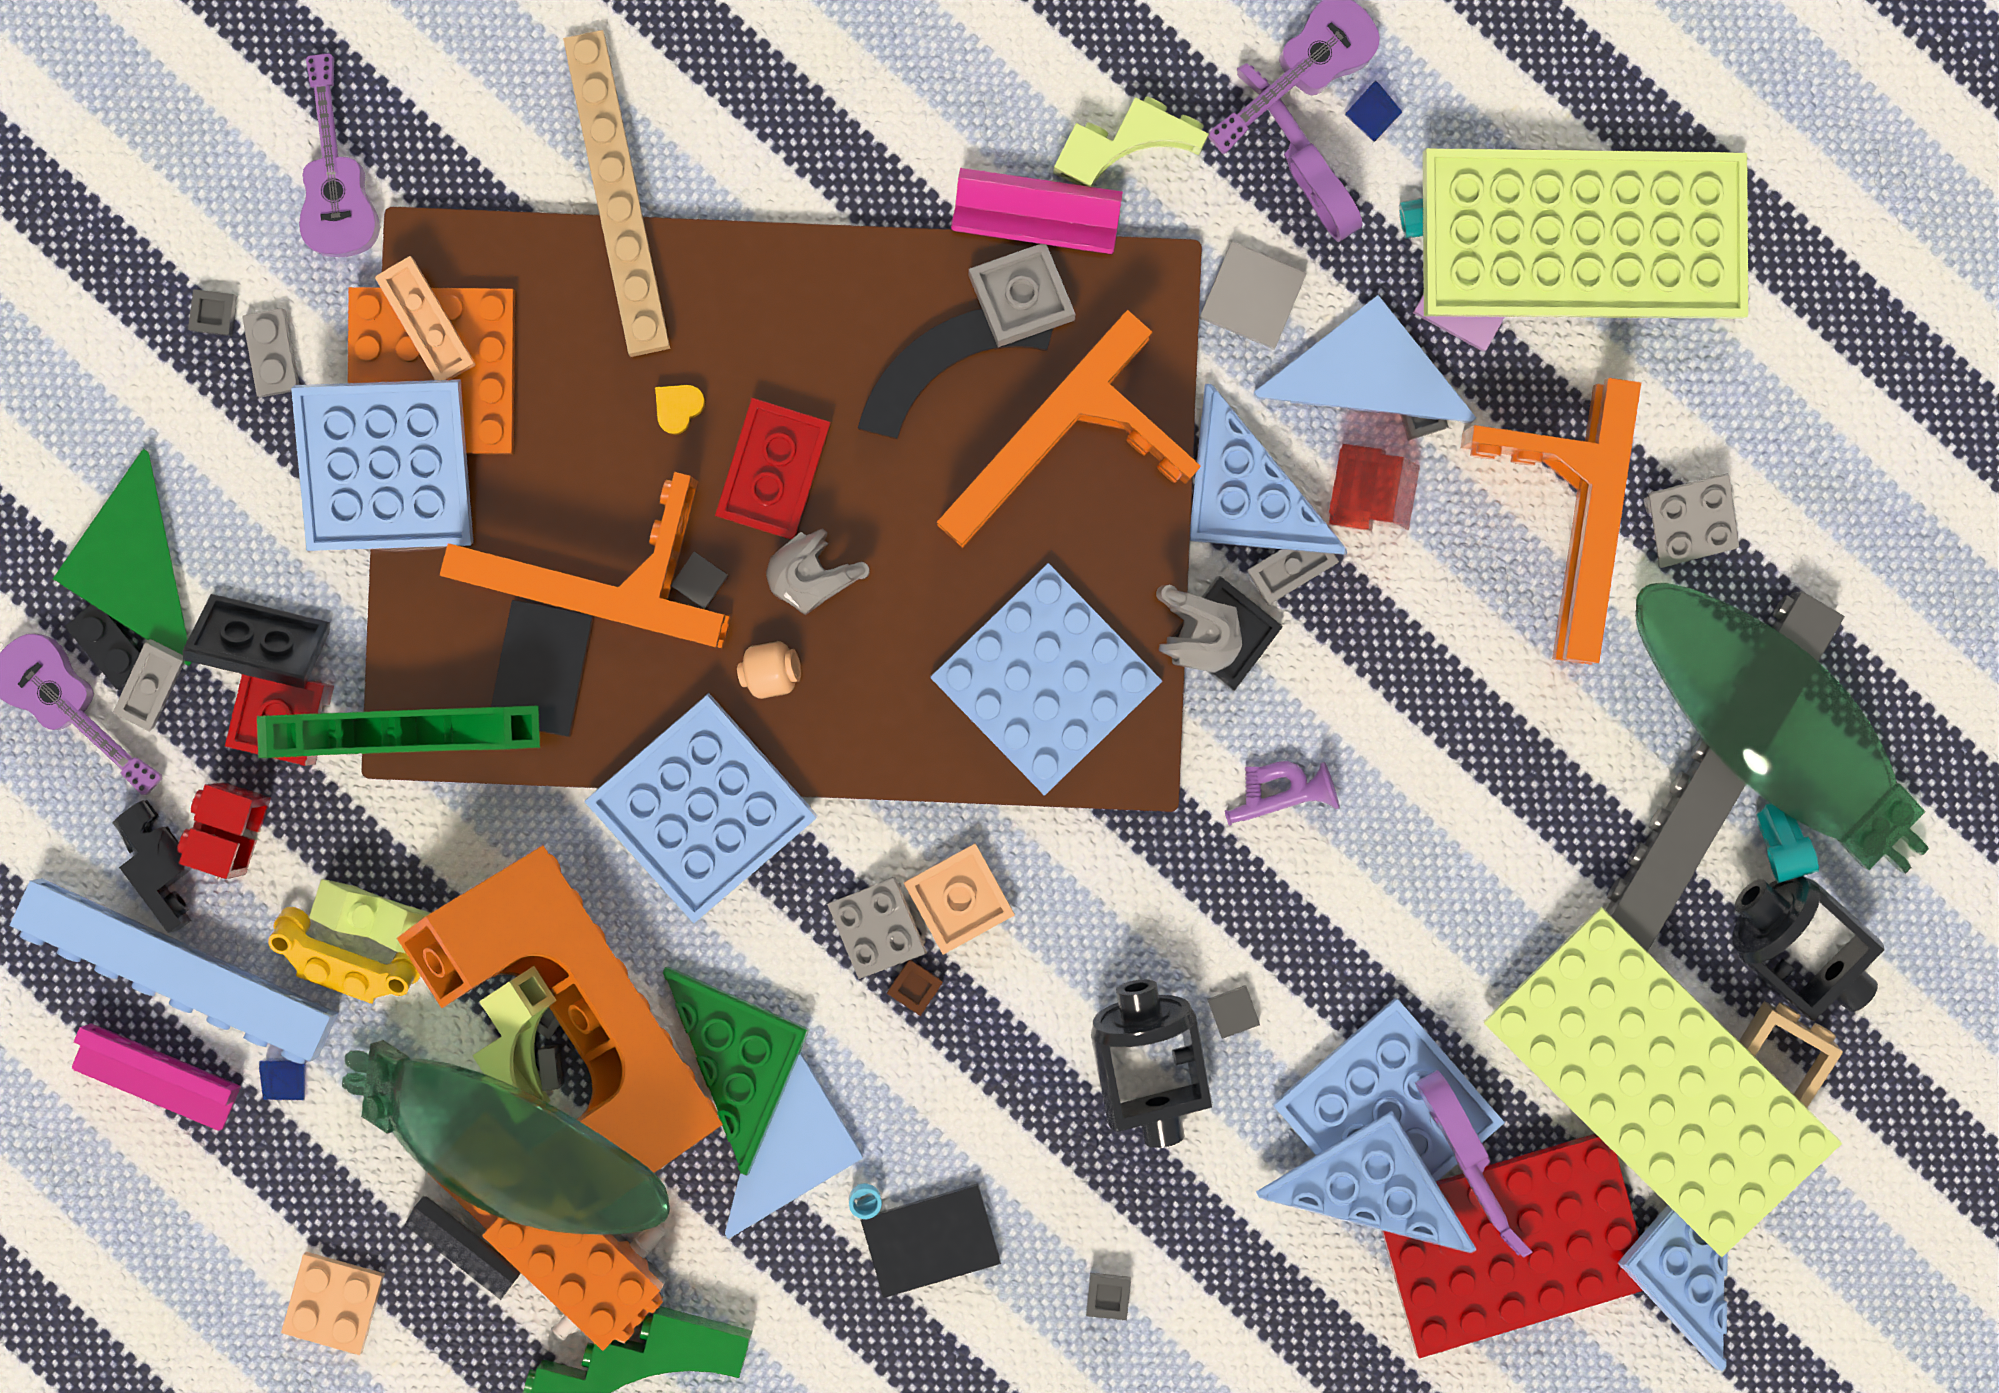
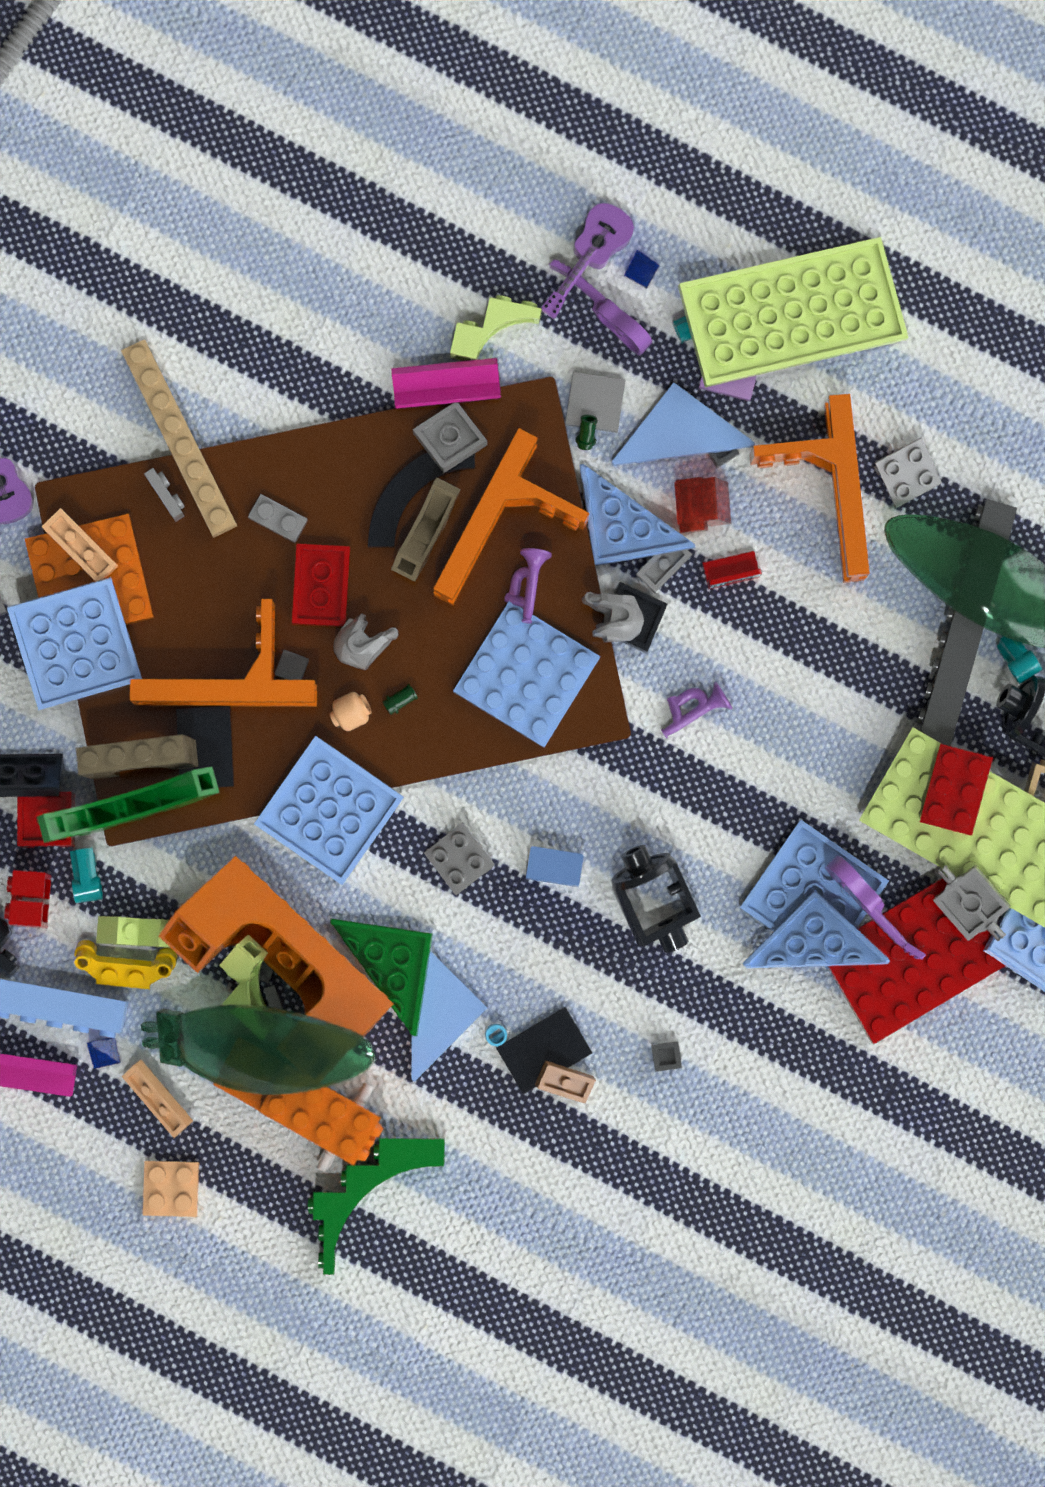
camera: 20 degrees left, 5 degrees down
(317, 823) = (86, 883): none -> teal piece
(344, 1168) = (157, 1098): none -> light nougat plate
(431, 661) = (109, 759): none -> dark tan arch
(462, 1247) = (246, 1127): black tile -> none
(581, 289) = (160, 485): none -> light grey plate
(677, 406) = (250, 561): yellow tile -> none
(734, 352) = (277, 518): none -> light grey plate
(847, 670) = (399, 699): none -> dark green pin
(915, 987) = (493, 891): reddish brown tile -> none
(949, 1298) = (565, 1082): none -> plate
(950, 426) = (426, 529): none -> dark tan arch
(959, 898) = (506, 827): light nougat plate -> none
(1014, 977) = (554, 866): none -> medium blue panel
(1101, 512) = (534, 559): none -> medium lavender piece
(1225, 346) = (586, 438): none -> dark green pin
(1233, 1011) = (699, 855): dark grey tile -> none
(1391, 599) = (731, 570): none -> red panel
(1621, 1193) = (971, 903): none -> light grey plate
(1643, 1020) = (956, 789): none -> red plate

